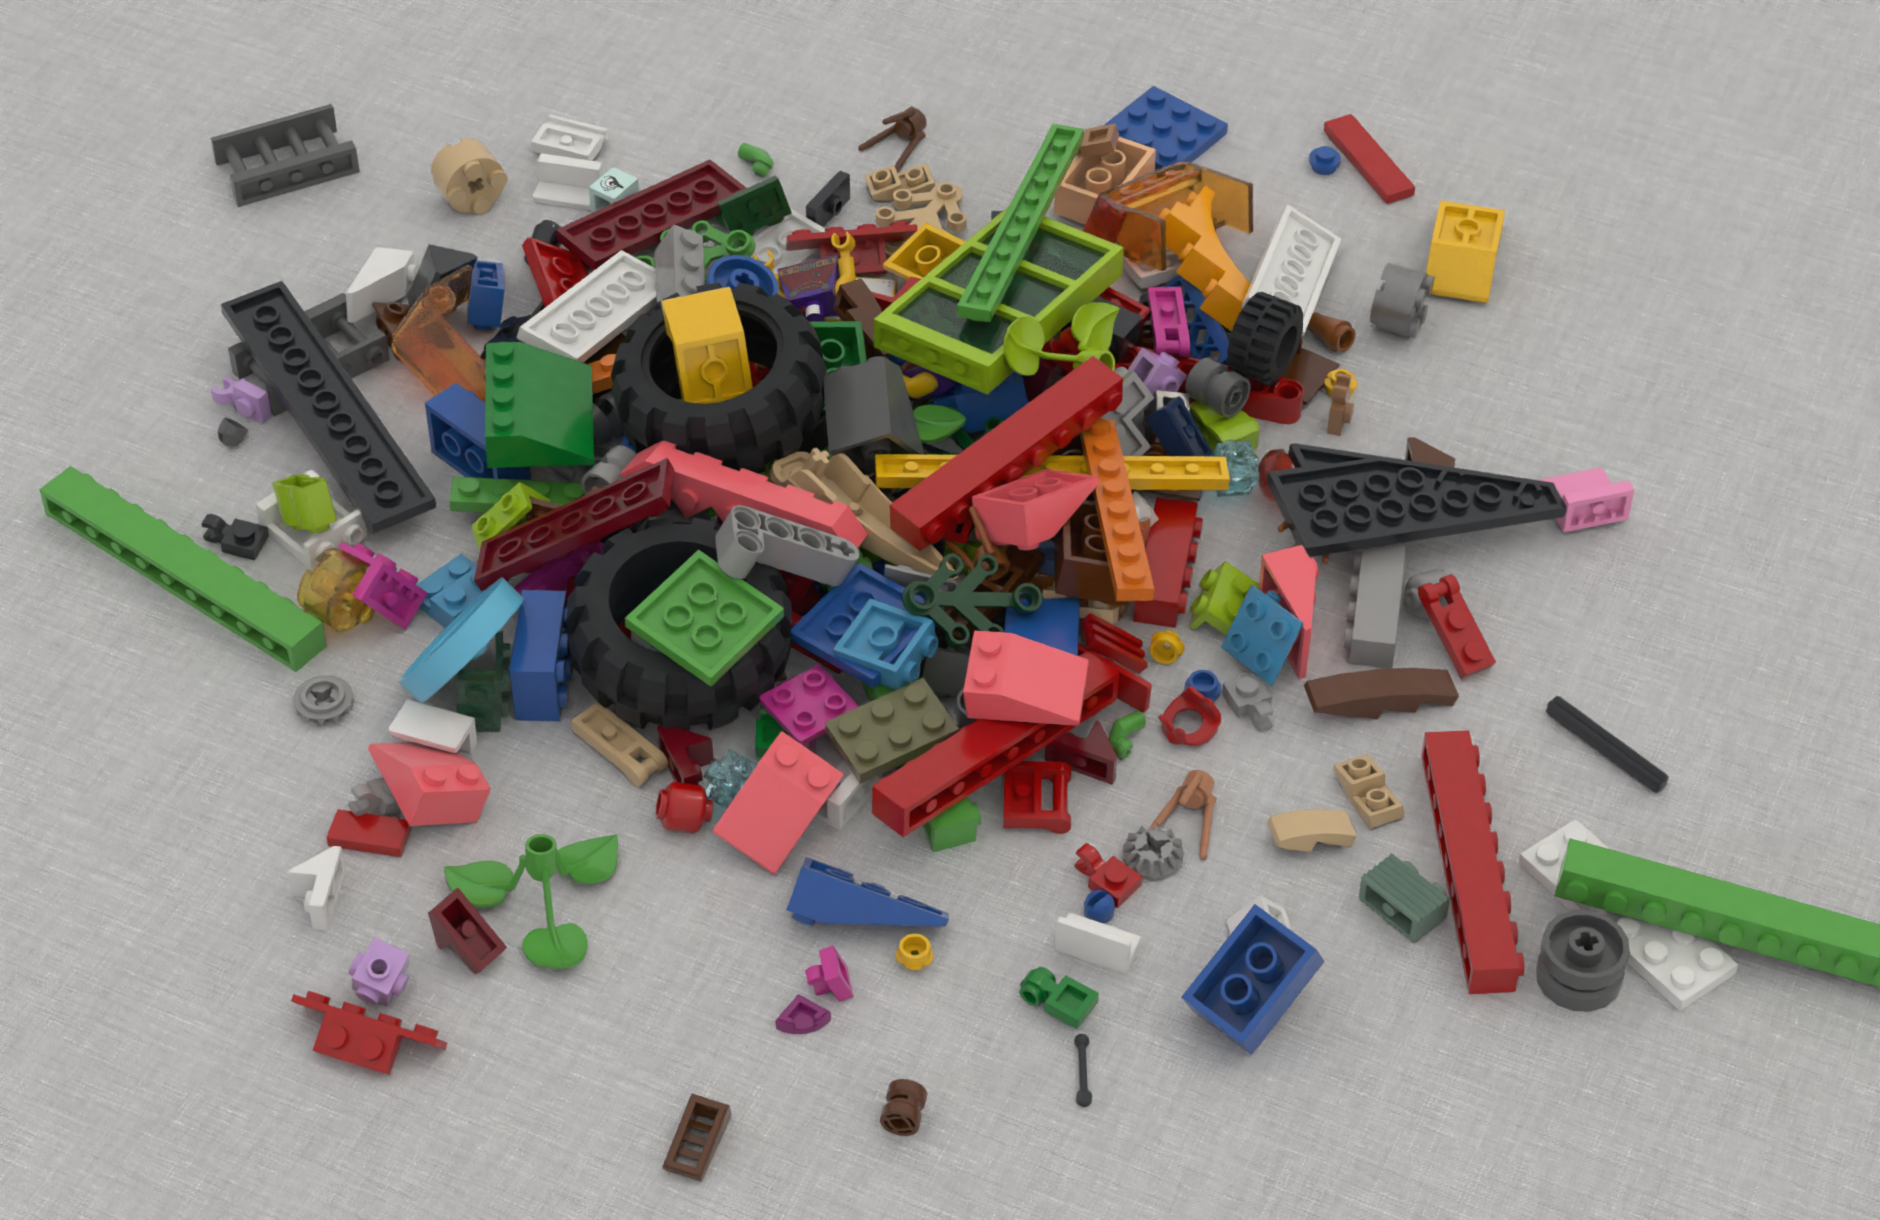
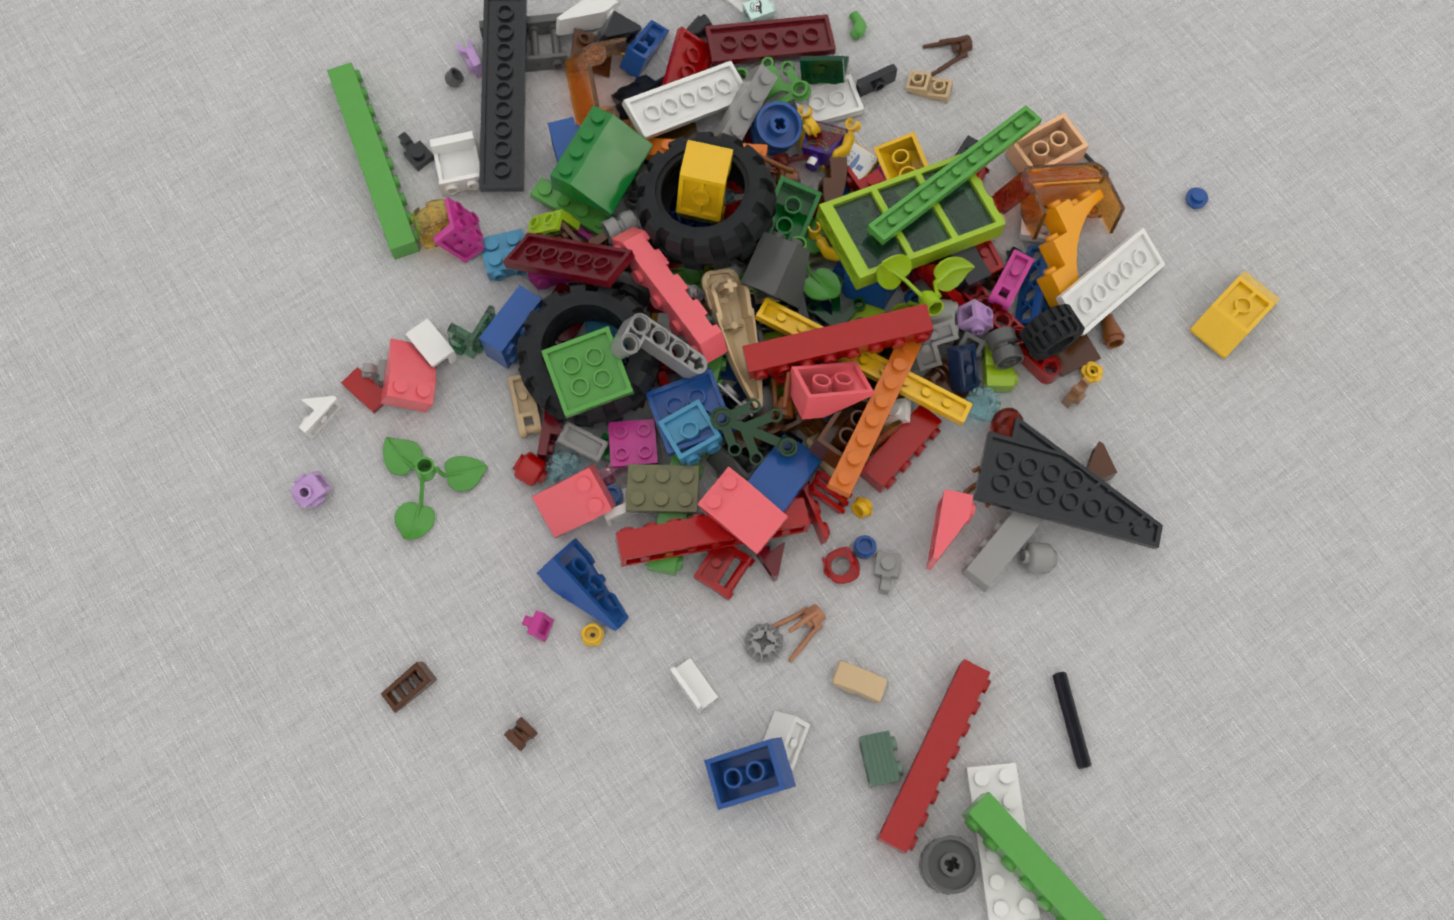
camera: 30 degrees right, 25 degrees up
(304, 503) = (449, 155): lime brick -> none
(320, 689) = (399, 280): light grey gear -> none
(361, 1039) = (284, 521): red bracket -> none
(461, 640) = (469, 300): medium azure piece -> none
(461, 926) = (368, 489): dark red slope -> none
(743, 736) = (582, 442): none -> light grey tile
(787, 270) = (811, 127): none -> yellow plate
(802, 1017) = (510, 640): magenta tile -> none
(869, 243) = (872, 129): red bracket -> none
(941, 198) = (925, 119): tan plant -> none
(1065, 1001) = (651, 715): green plate -> none
(1083, 1097) = (622, 780): black hinge -> none
(1099, 141) = (1054, 123): medium nougat plate -> none
(1102, 910) = (711, 666): blue hinge -> none
(1110, 876) = (728, 647): red plate -> none
(1120, 731) = (798, 551): bright green arm -> none
(1169, 126) = (1111, 125): blue plate -> none
(1220, 597) = (916, 493): lime bracket -> none
(1262, 634) = (915, 538): dark azure hinge -> none
(1367, 791) = (911, 672): tan slope -> none
(1369, 158) = (1225, 210): red tile -> none
(1372, 691) = (962, 610): reddish brown slope -> none
(1400, 301) = (1165, 336): flat silver brick -> none
(1456, 626) = (1035, 593): red plate -> none
(1592, 499) = (1182, 539): bright pink bracket -> none

